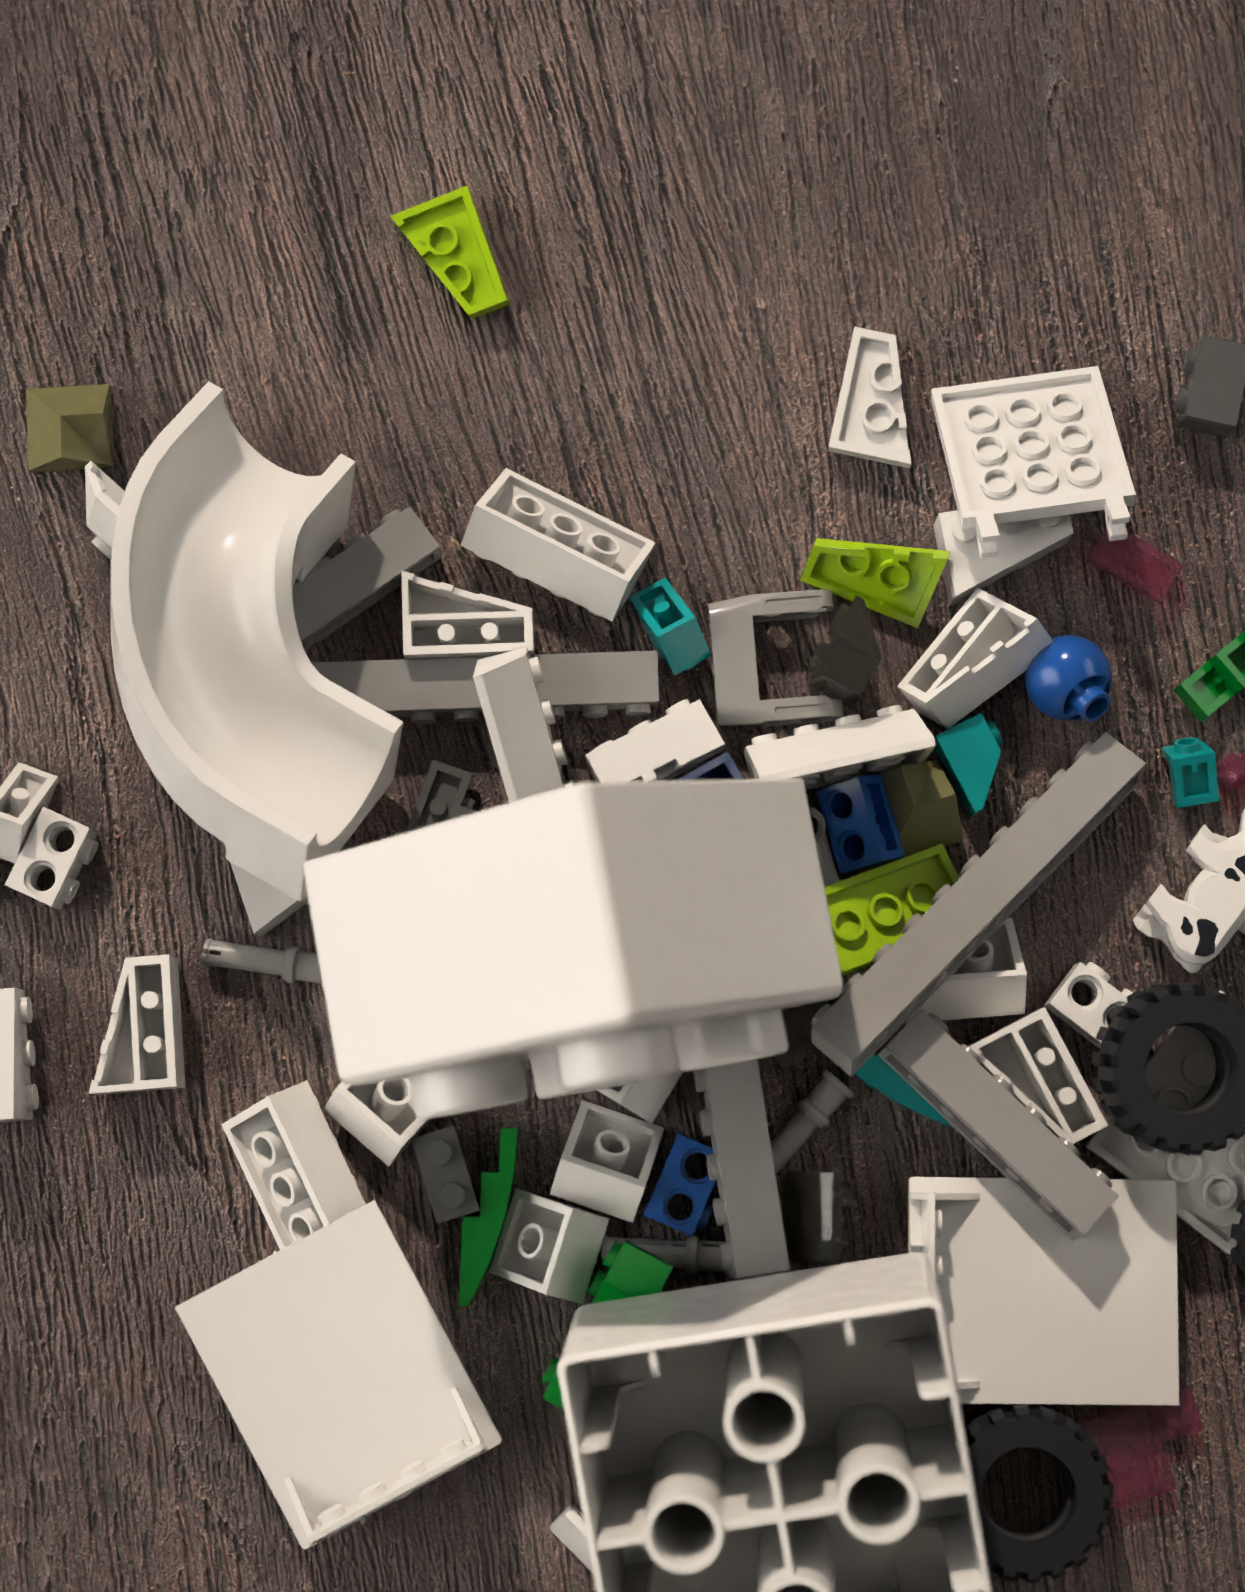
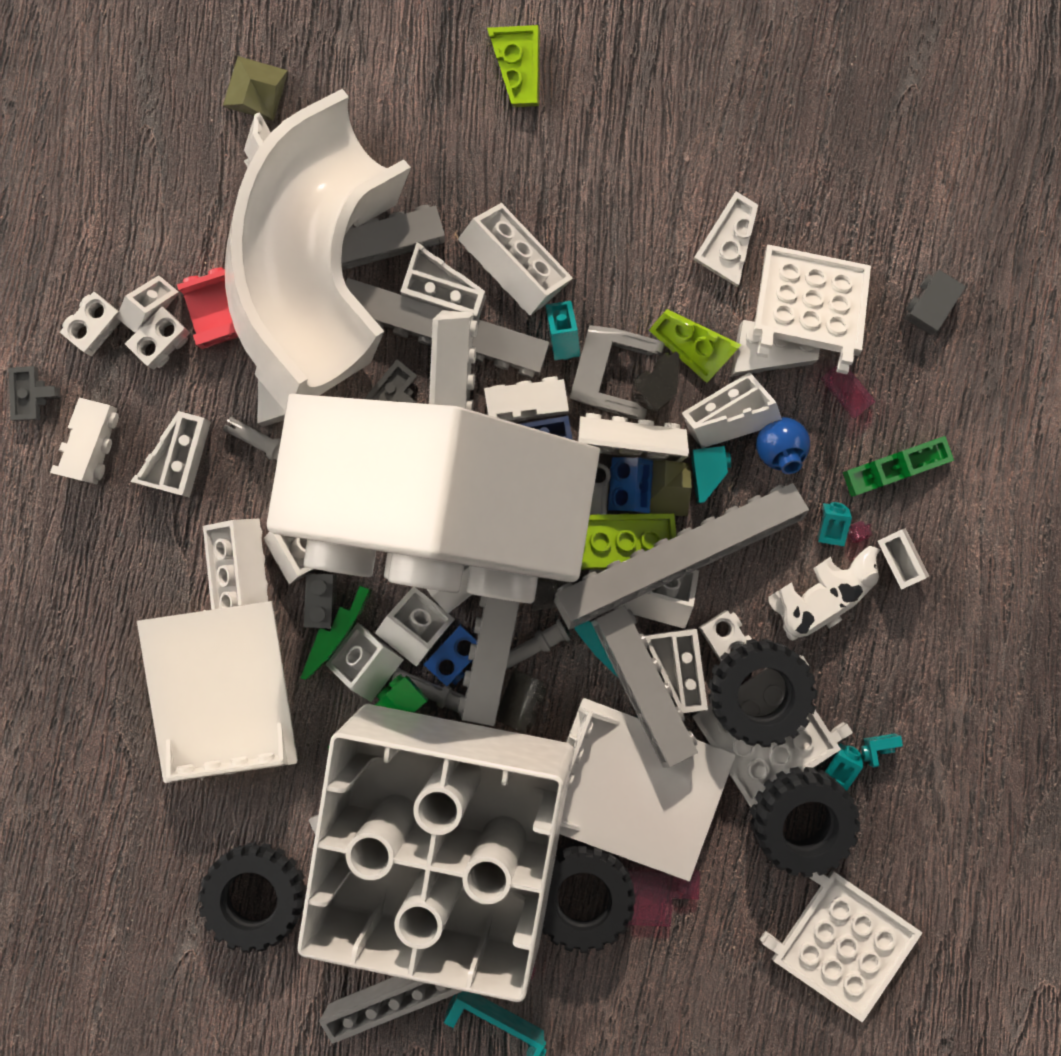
camera: 20 degrees right, 5 degrees up
(117, 783) = (208, 308): none -> coral panel

